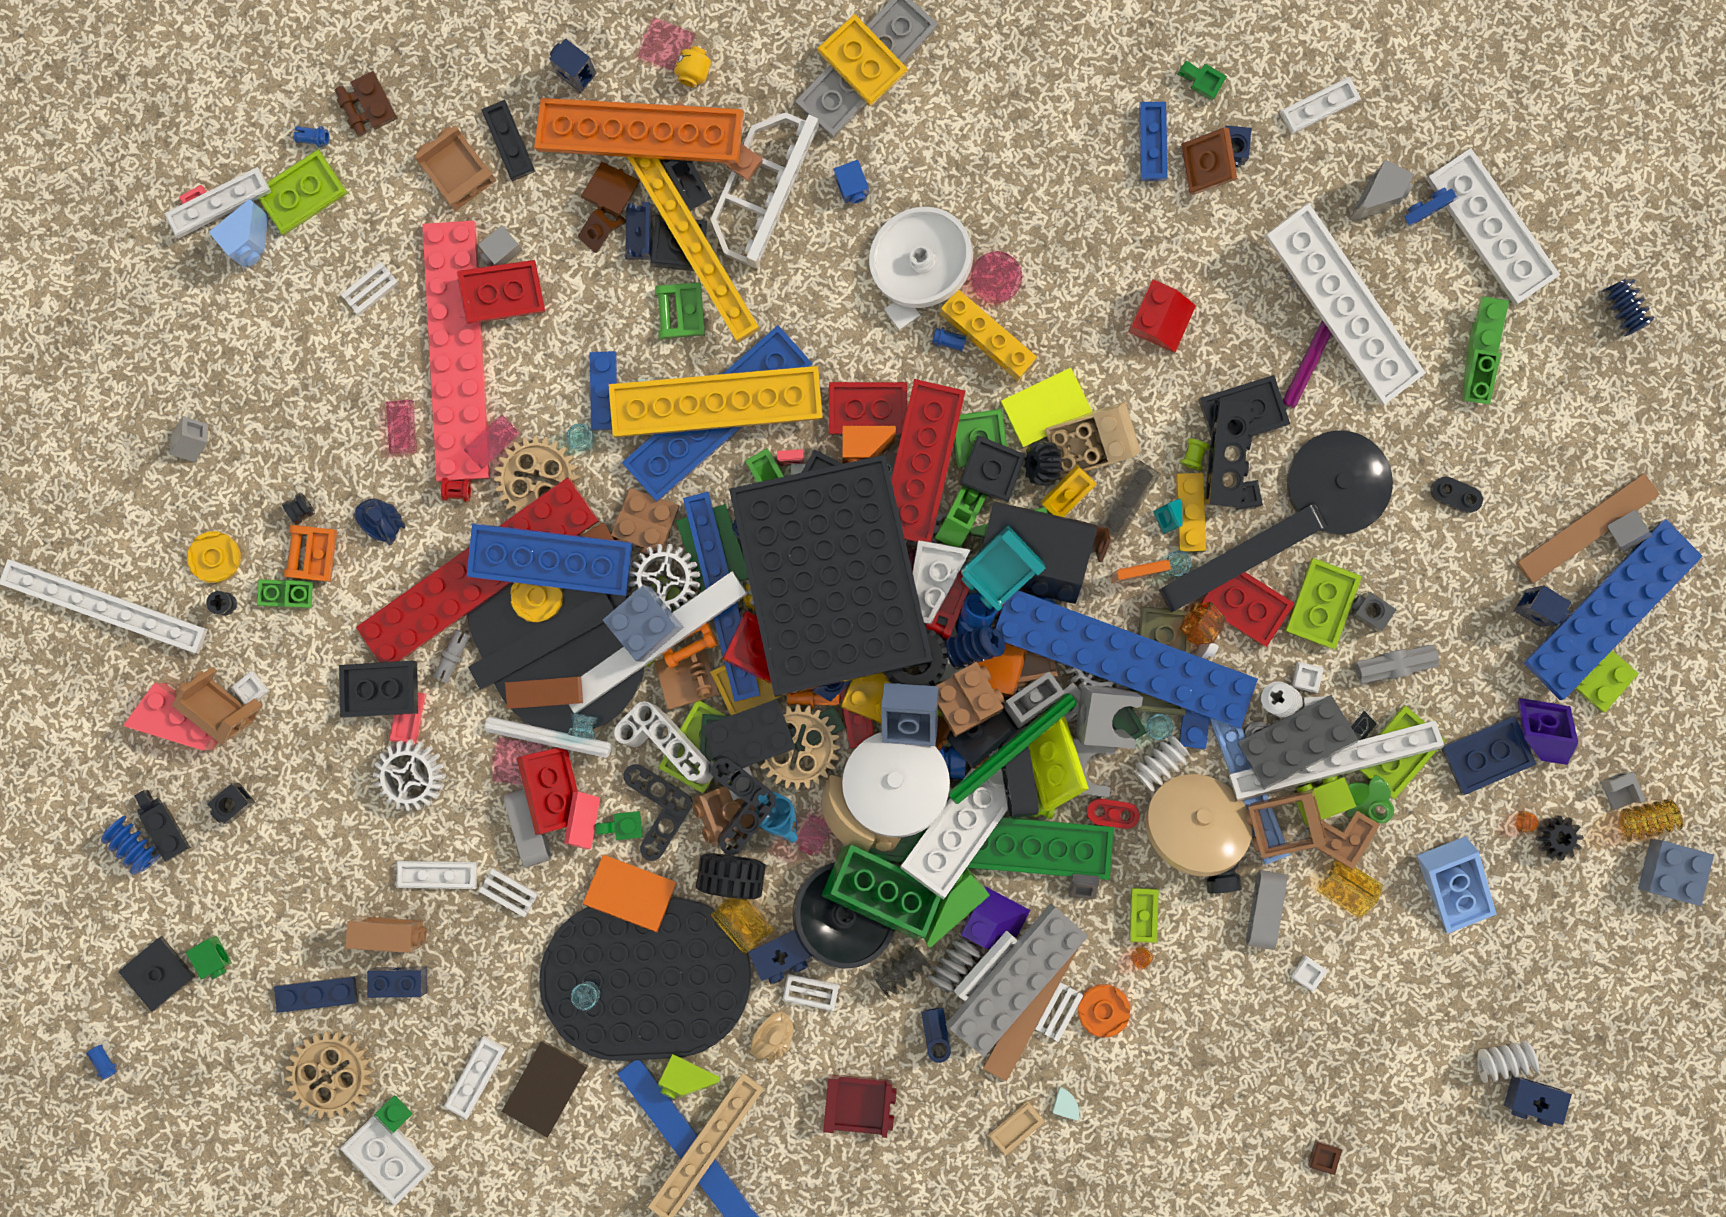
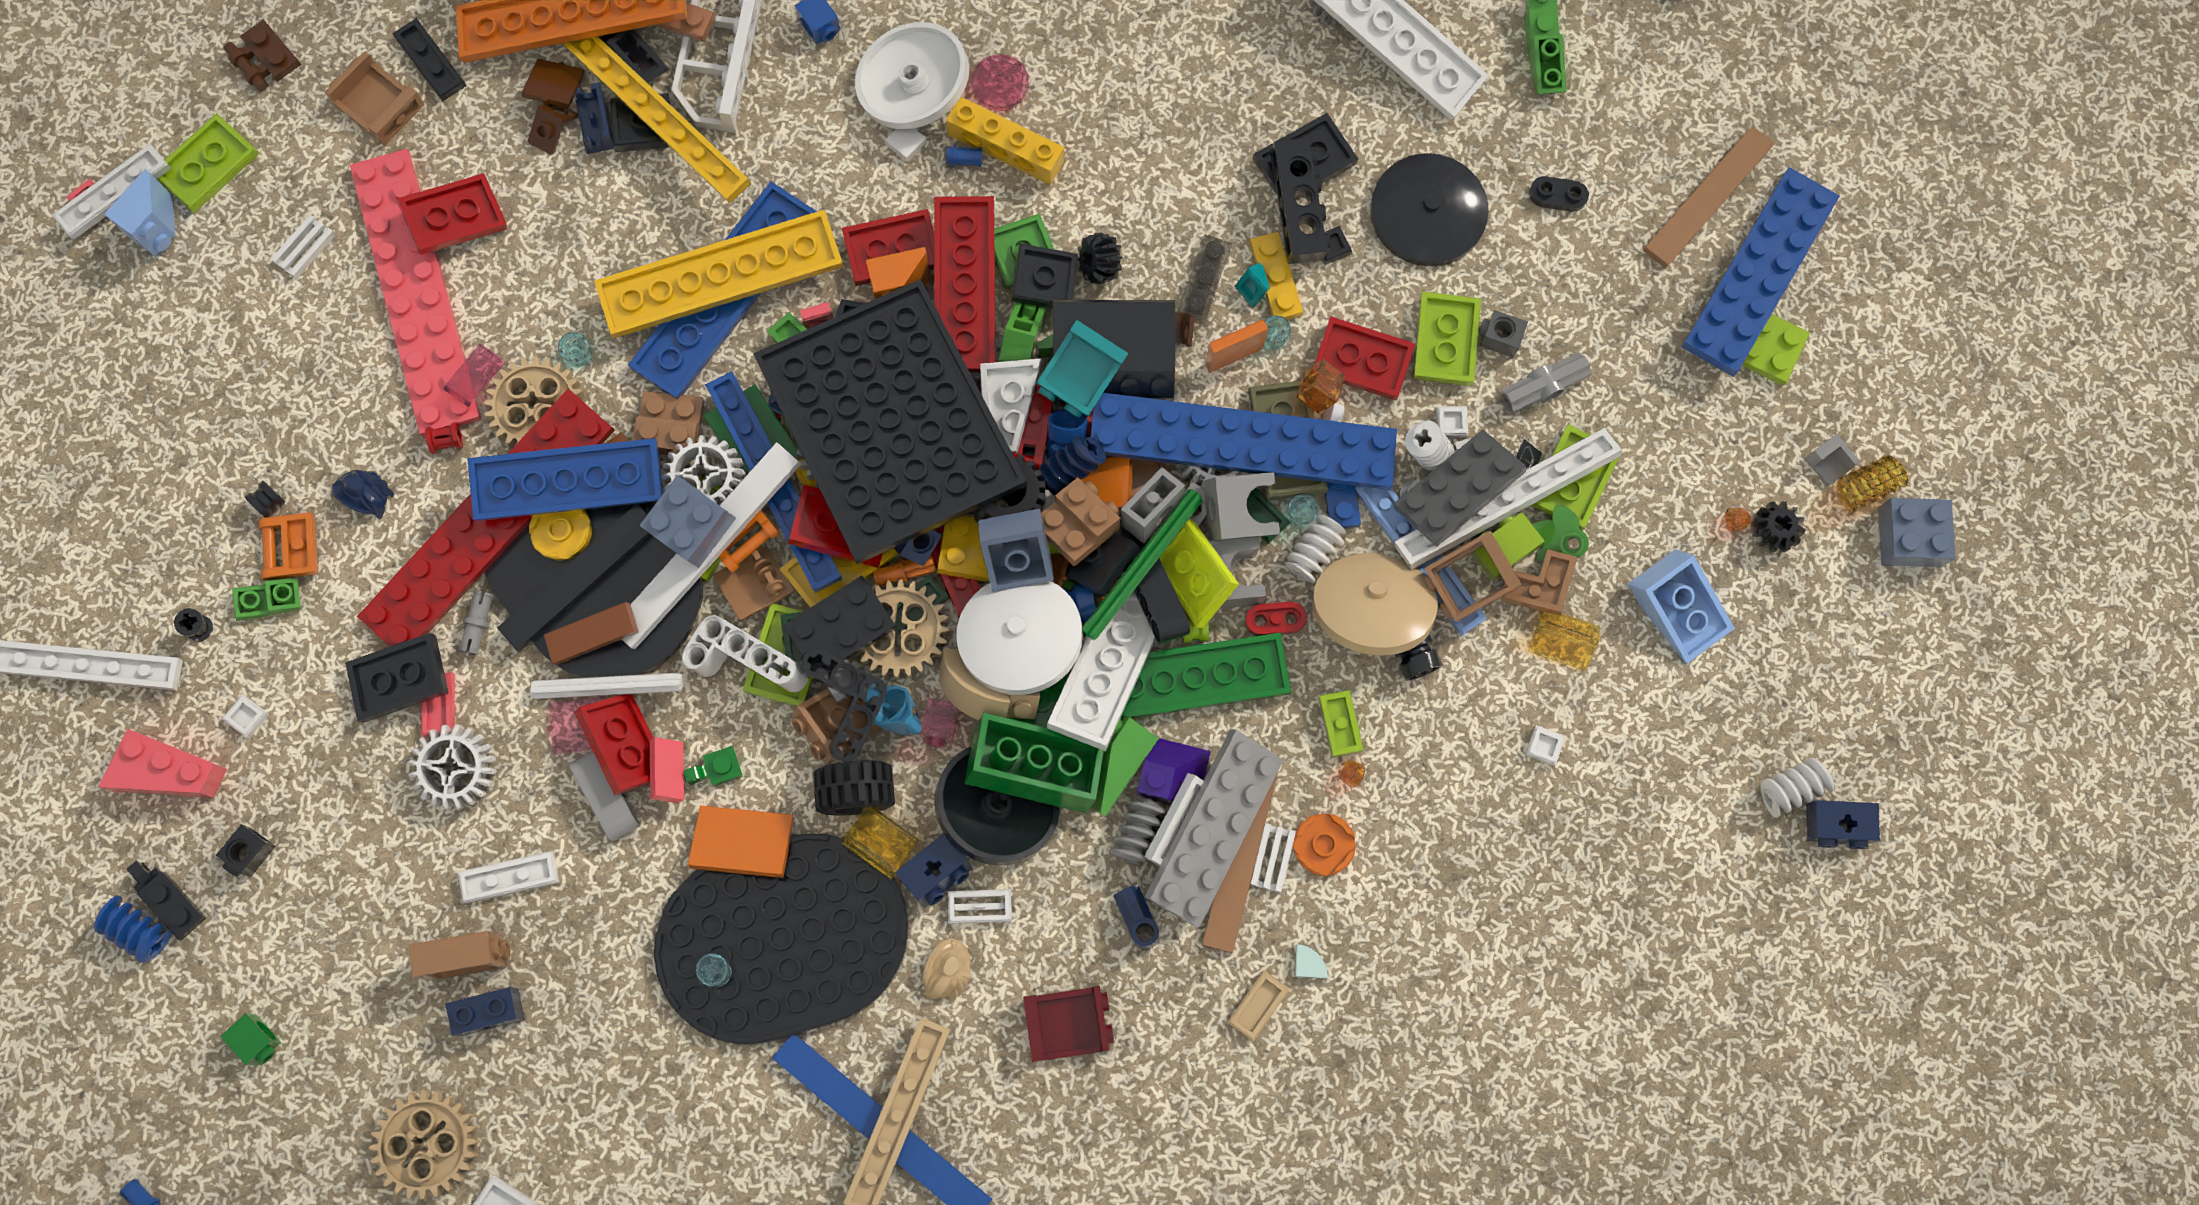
camera: 15 degrees left, 10 degrees down
(156, 974) = (191, 1077): black plate -> none
(188, 439) = (122, 452): light grey panel -> none
(213, 707) = (202, 742): medium nougat panel -> none
(218, 563) = (184, 582): yellow tile -> none
(312, 135) = (209, 100): blue pin -> none
(315, 994) = (389, 1053): dark blue plate -> none
(393, 1114) = (511, 1174): green plate -> none
(401, 427) = (368, 386): clear pink tile -> none
(475, 1077) = (602, 1106): white tile -> none
(489, 881) = (572, 869): white tile -> none
(499, 247) = (441, 167): light grey brick -> none
(544, 1088) = (689, 1098): dark brown tile -> none
(582, 725) = (644, 659): clear light blue wheel -> none
(602, 373) = (583, 270): blue plate -> none
(667, 812) = (765, 739): black beam -> none
(685, 1078) = (855, 1041): lime slope -> none
(689, 310) = (668, 190): bright green plate -> none
(901, 970) = (1077, 852): clear smoke piece -> none
(1044, 406) = (1089, 203): neon yellow tile -> none
(1068, 492) = (1137, 278): yellow plate -> none
(1084, 886) = (1264, 707): flat silver tile -> none
(1095, 438) = (1150, 221): tan slope -> none
(1162, 316) = (1190, 80): red slope -> none
(1194, 454) = (1263, 214): lime bush -> none
(1243, 557) = (1344, 306): black beam -> none
(1266, 909) = (1477, 684): light grey beam -> none
(1307, 366) = (1361, 97): magenta axle -> none
(1325, 1157) = (1622, 951): reddish brown tile -> none
(1488, 755) = (1674, 457): dark blue plate -> none
(1543, 606) = (1685, 282): dark blue brick -> none
(1548, 730) = (1732, 414): dark purple slope -> none
(1629, 530) = (1755, 185): light grey panel -> none

